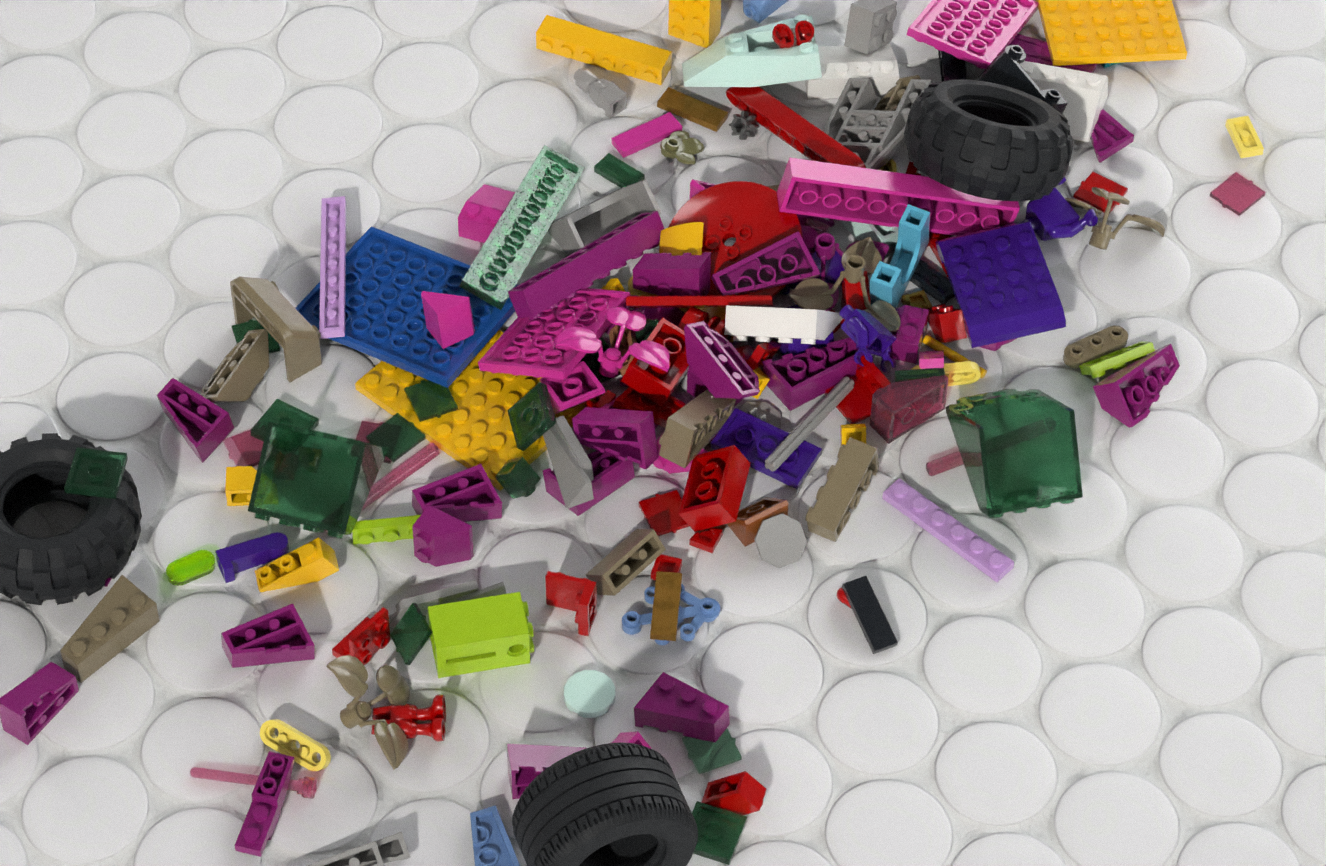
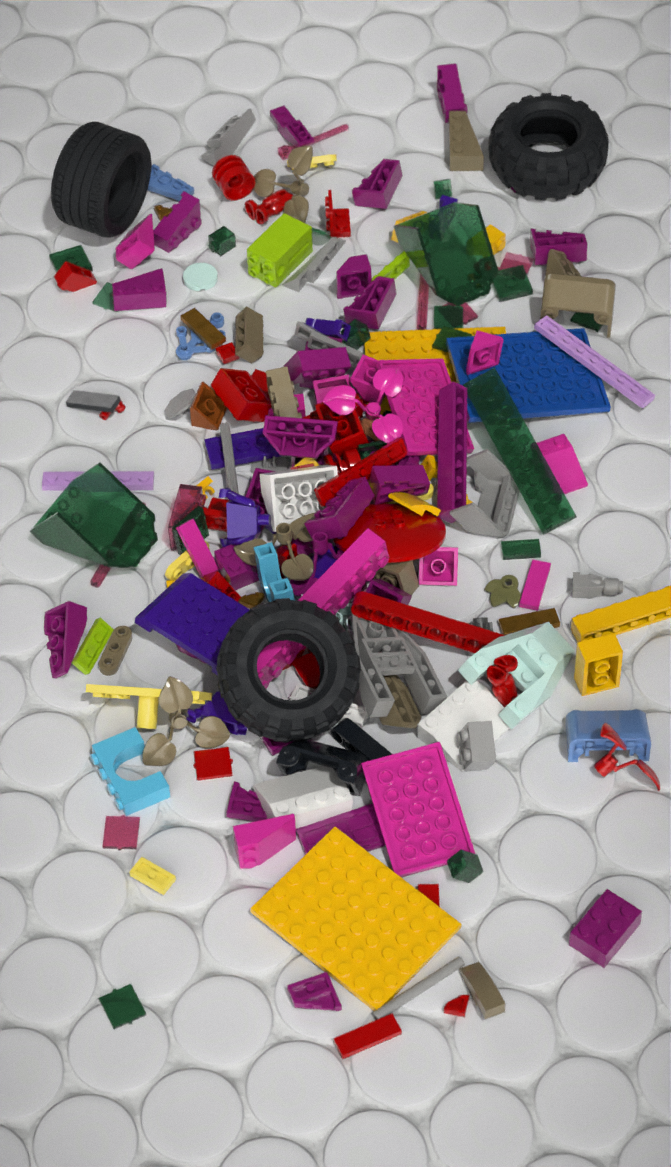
camera: 140 degrees right, 0 degrees up
(96, 473) = (536, 146): clear green tile -> none
(190, 567) = (467, 194): clear neon green tile -> none
(203, 589) = (442, 187): none -> clear green tile
(418, 776) = (233, 177): none -> red wheel
(520, 714) = (222, 241): none -> clear green brick
(532, 416) = (376, 352): clear green tile -> none
(540, 502) = (329, 327): none -> dark purple leg
(574, 595) = (255, 297): red bracket -> none
(843, 489) = (174, 451): dark tan wedge -> none
(1114, 255) = (147, 701): none -> light yellow plate
(1131, 85) = (262, 839): none -> dark pink slope
(1193, 250) = (130, 795): none -> medium azure arch

